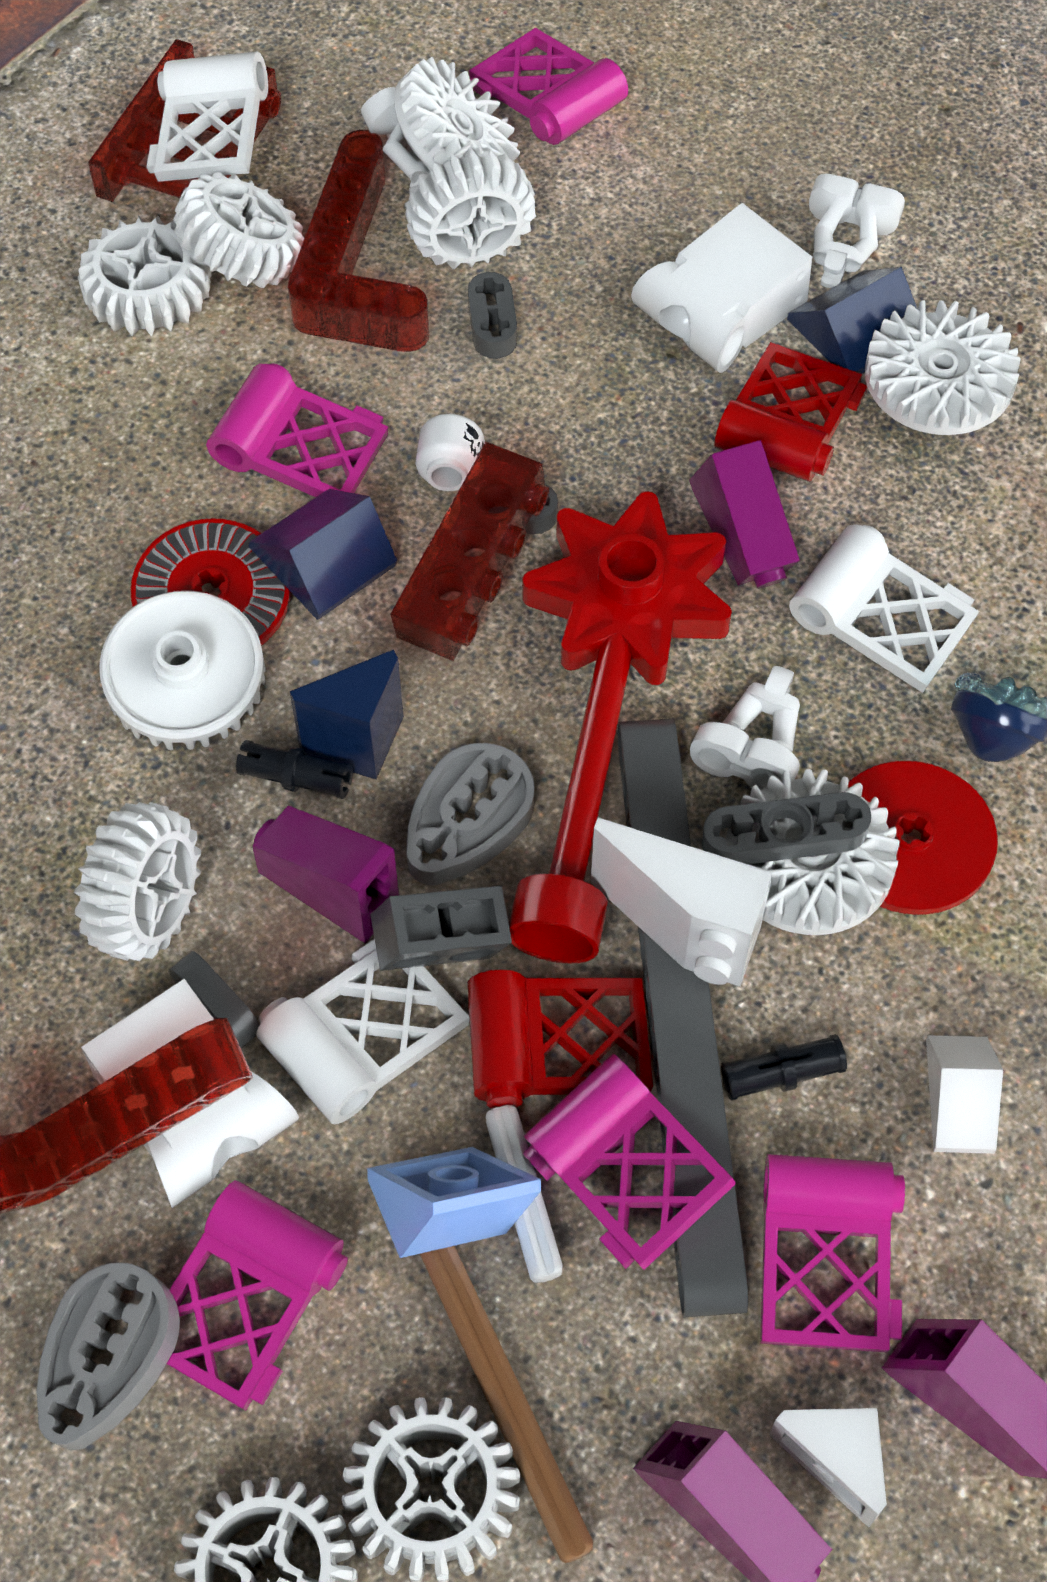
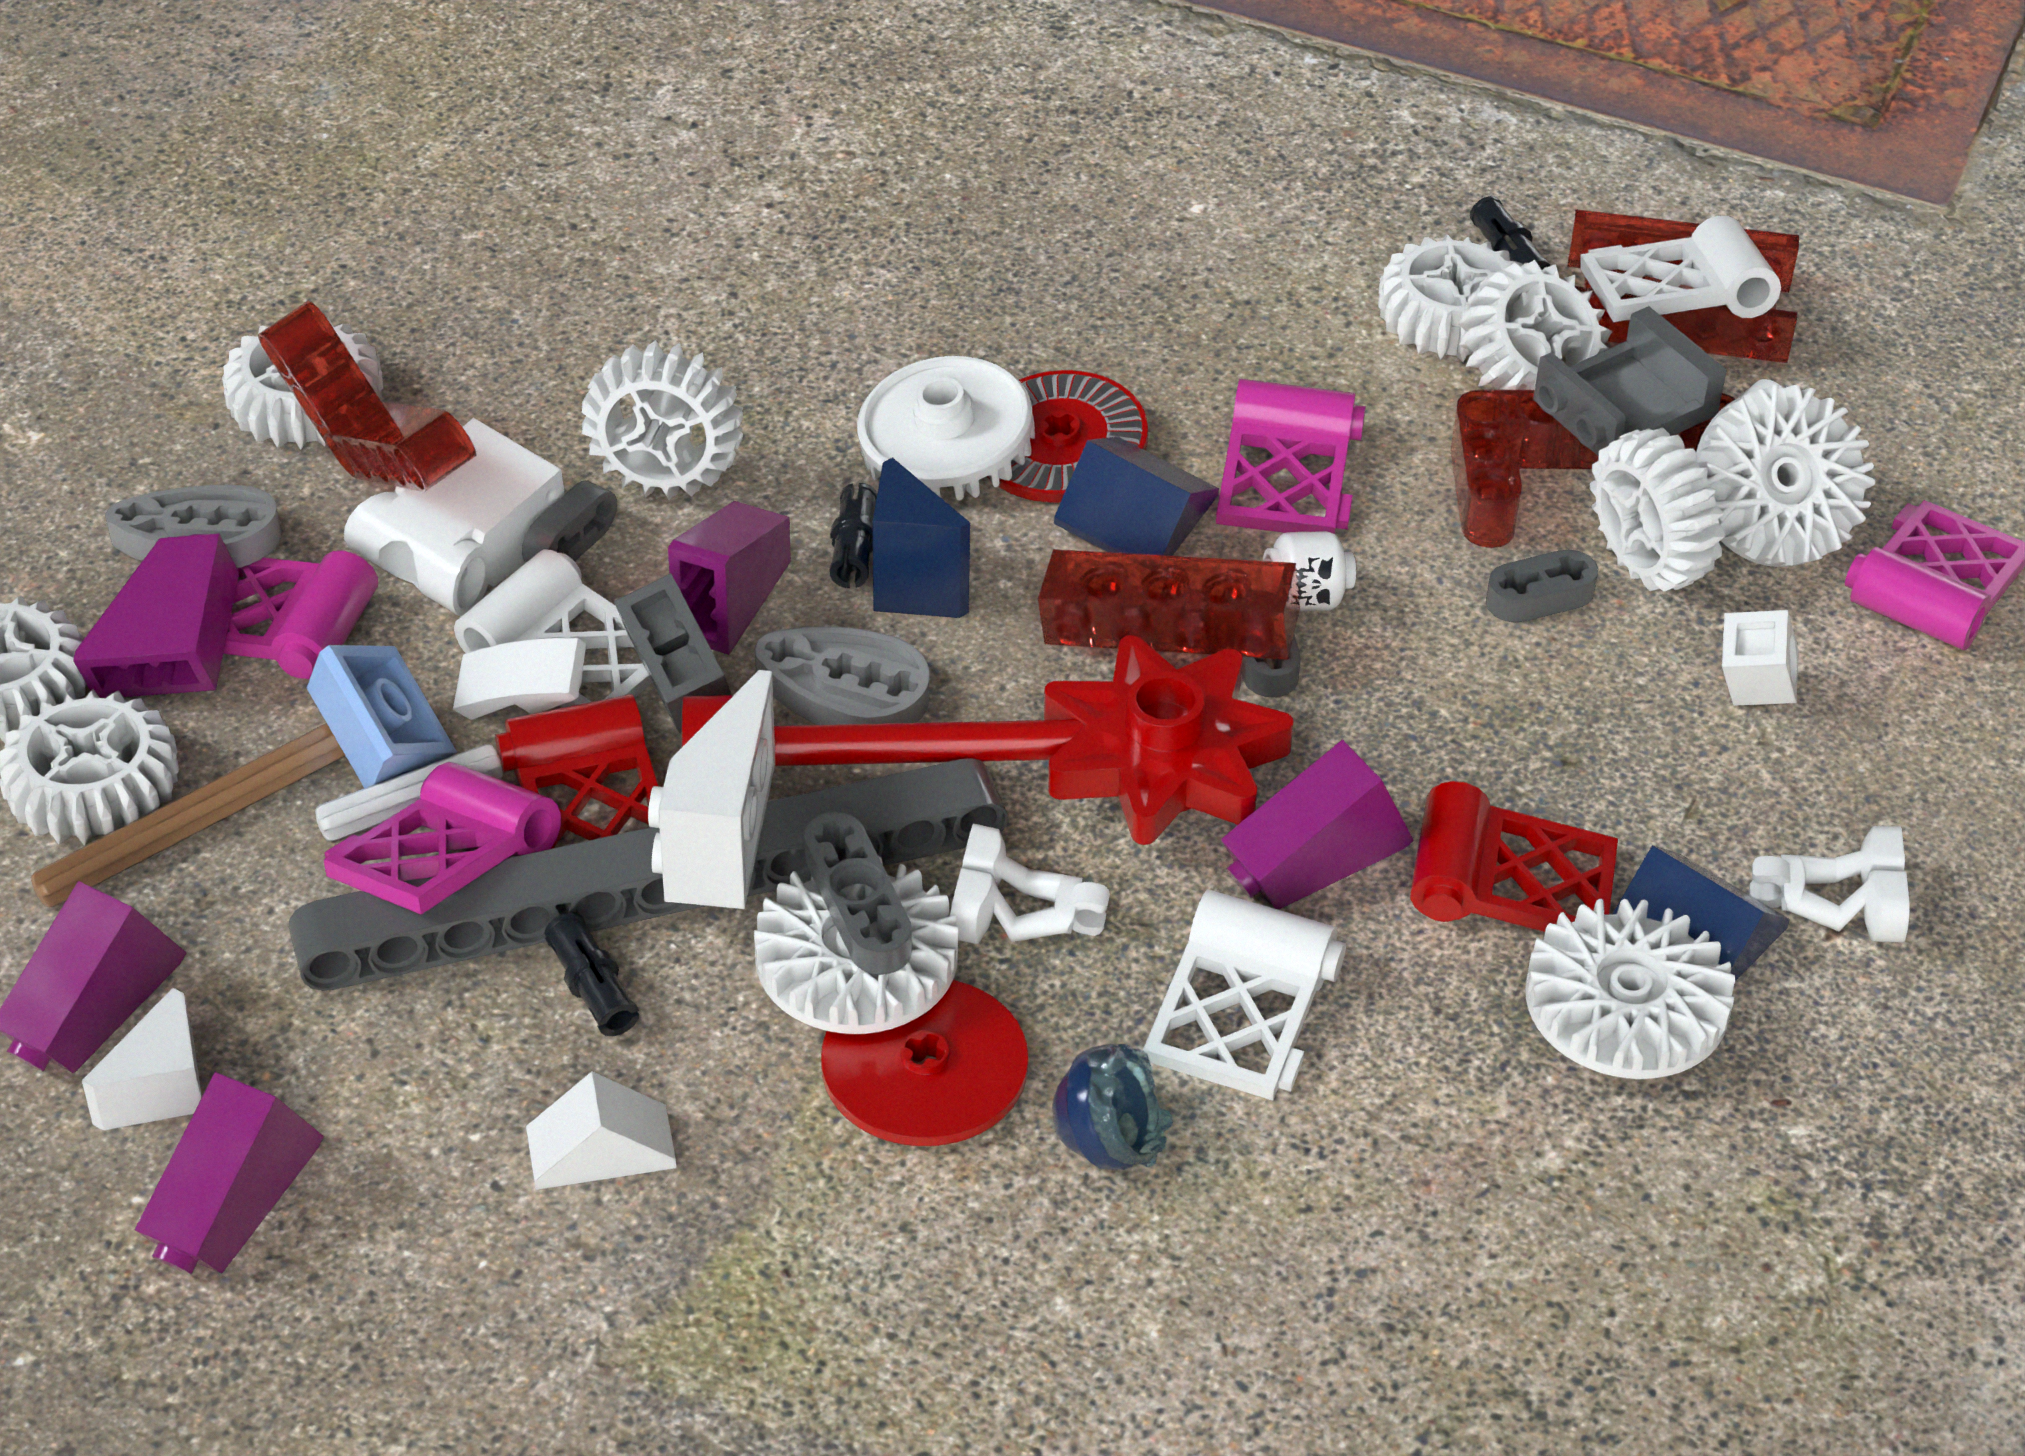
camera: 75 degrees right, 15 degrees down
(77, 224) = (1496, 223): none -> black pin
(260, 1383) = (165, 622): none -> magenta slope
(338, 181) = (1641, 384): none -> dark grey panel
(422, 1068) = (522, 673): none -> white slope
(632, 200) = (1760, 657): none -> white brick
(727, 286) = (1669, 774): white piece -> none
(838, 1200) = (438, 1028): dark pink piece -> none

